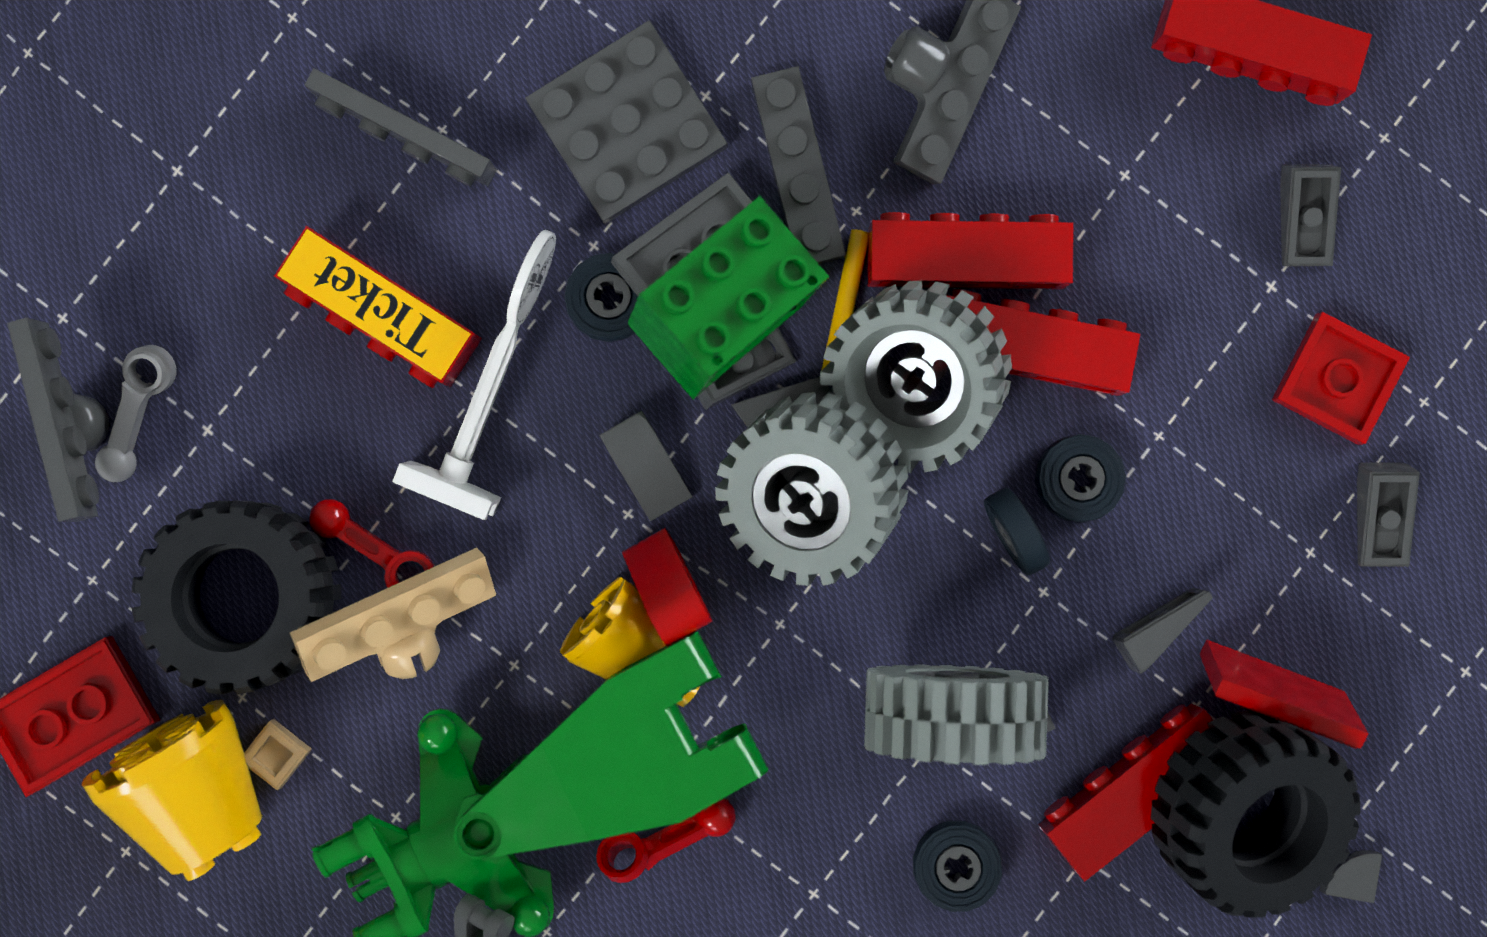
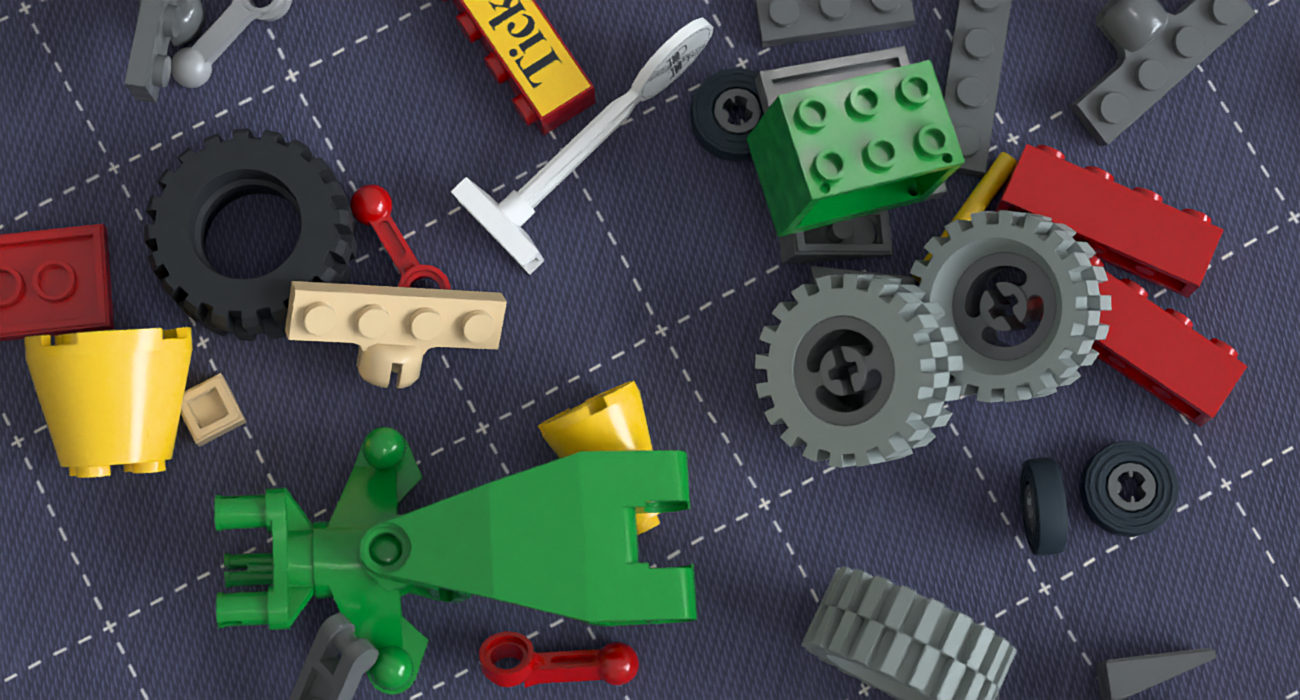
camera: 25 degrees right, 10 degrees down
(645, 465) = (701, 288): dark grey slope -> none
(666, 587) = (673, 403): red beam -> none

